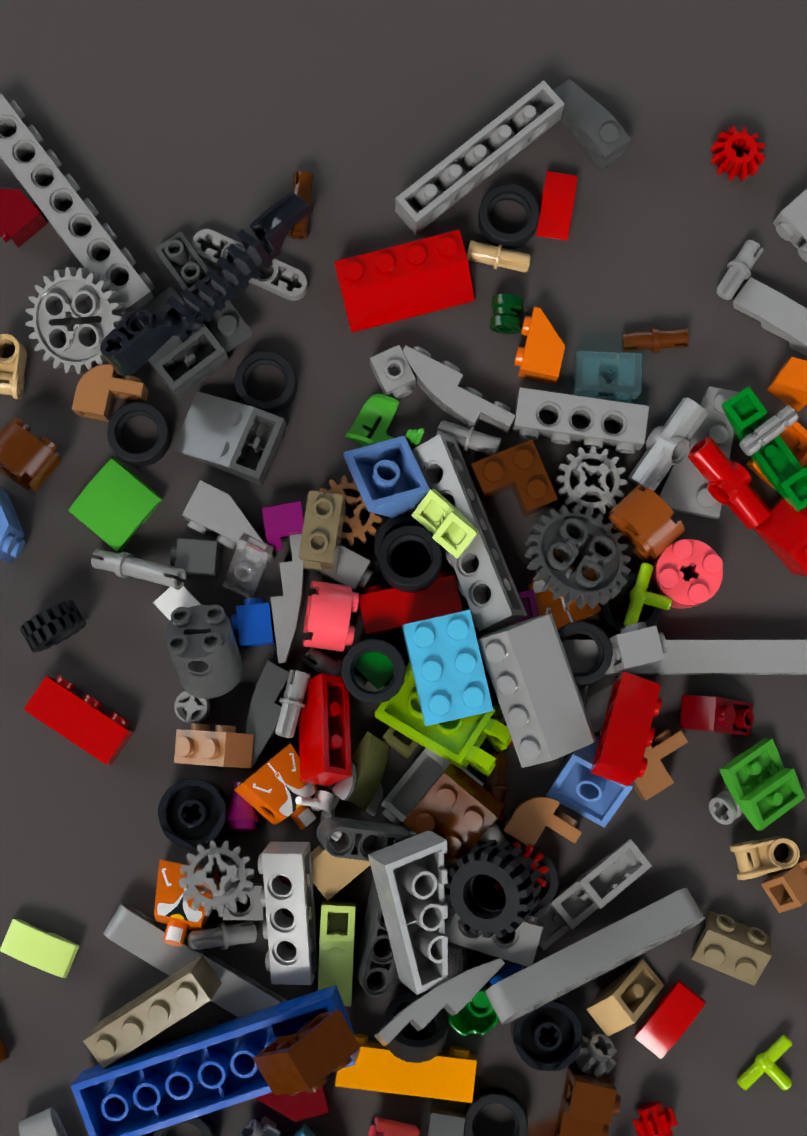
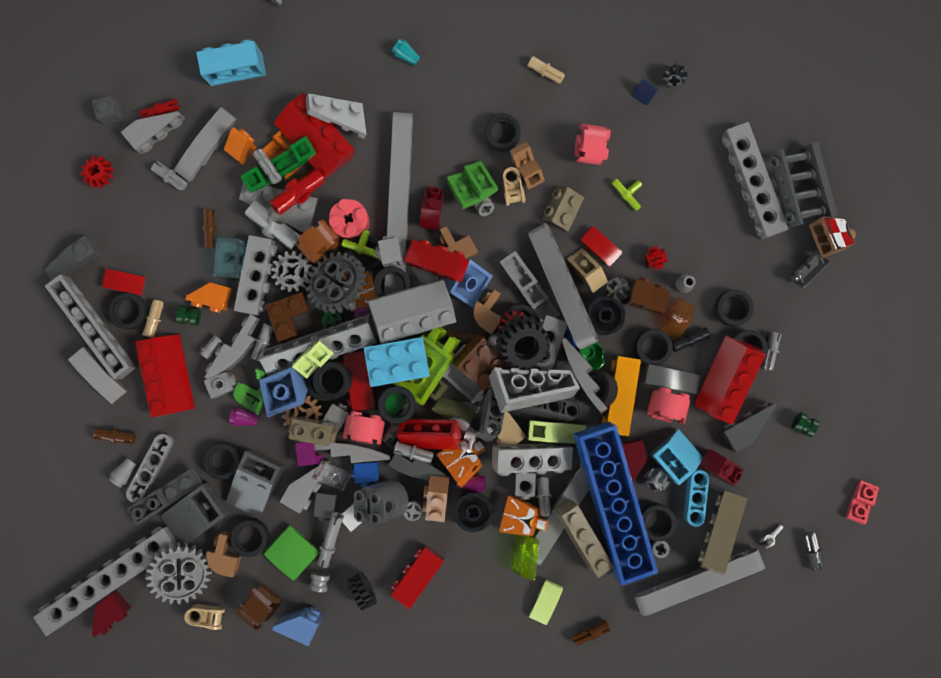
camera: 85 degrees left, 5 degrees up
(66, 552) = (319, 582): none -> light grey wheel
(118, 908) = (525, 556): none -> clear neon green slope
(146, 332) = (188, 532): black piece -> none
(204, 881) = (511, 508): light grey gear -> none
(235, 217) = (122, 473): none -> light grey cone
(305, 1058) = (611, 453): reddish brown brick -> none
(339, 411) = (242, 418): none -> magenta cone
(400, 171) = (96, 375): none -> light grey slope
(455, 353) = (210, 348): none -> light grey pin
(513, 550) = (330, 319): none -> dark green wheel

